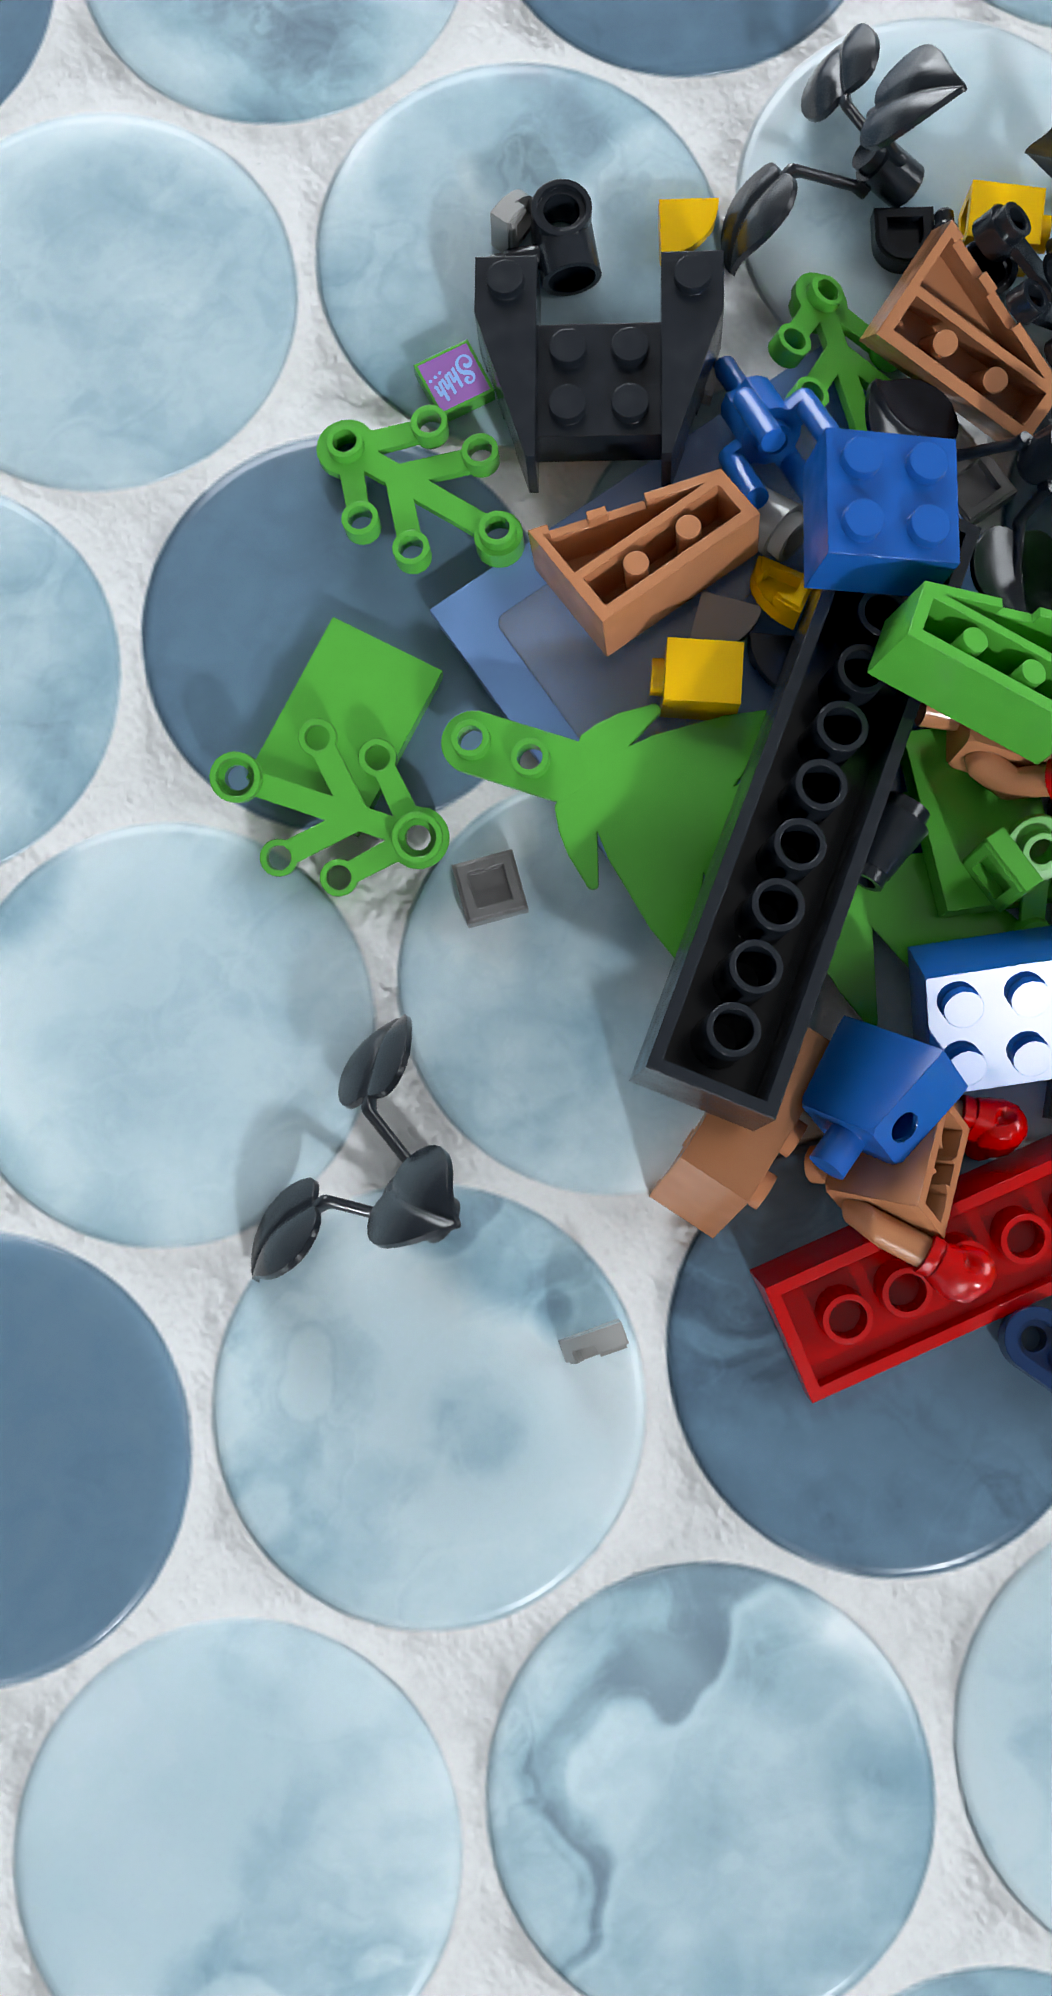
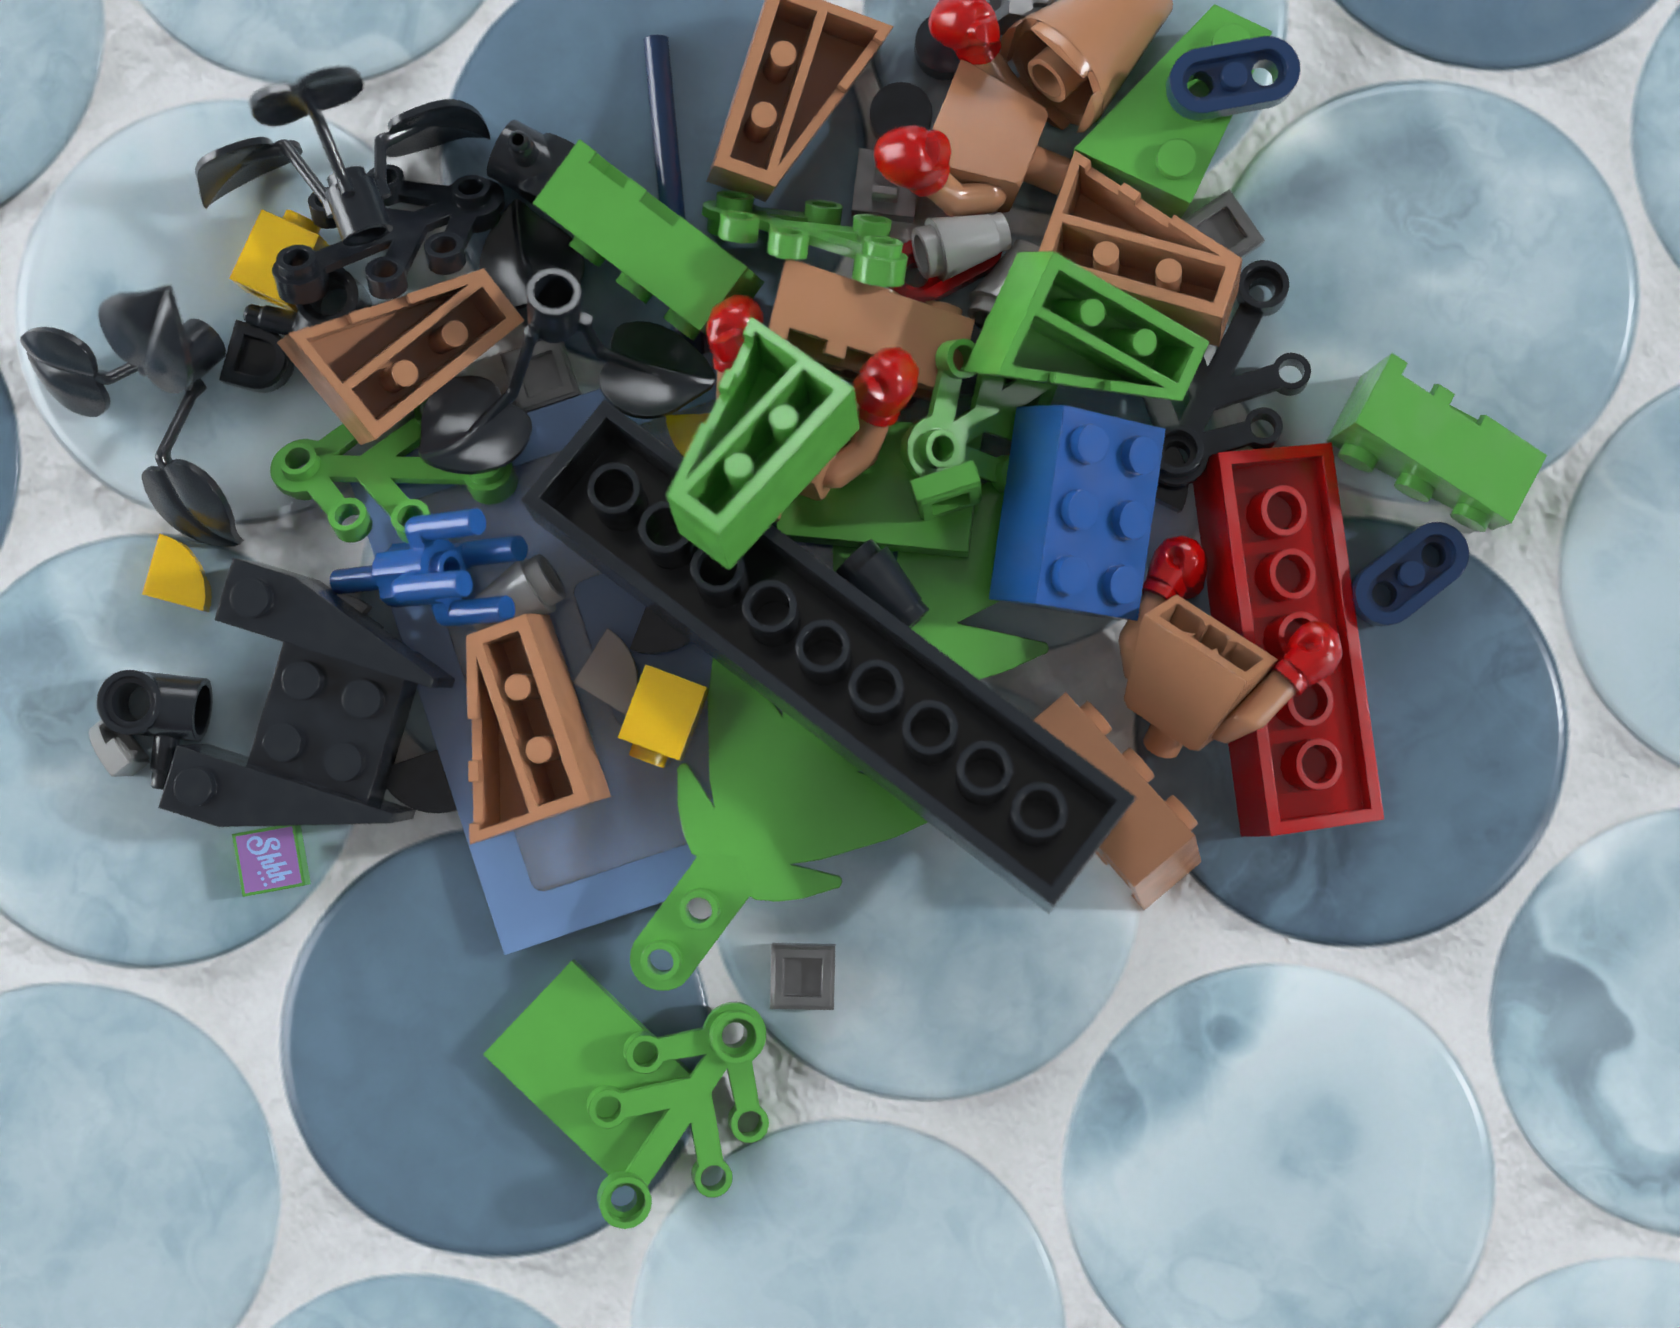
camera: 75 degrees left, 5 degrees up
(414, 484) = (370, 935): bright green plant -> none
(416, 1201) = (1092, 1143): black plant -> none
(563, 491) = (422, 784): none -> black tile
(598, 1340) = (1269, 998): light grey tile -> none
(779, 590) = (596, 605): yellow tile -> none
(877, 1095) = (1126, 681): blue torso -> none
(880, 512) = (572, 504): blue brick -> none

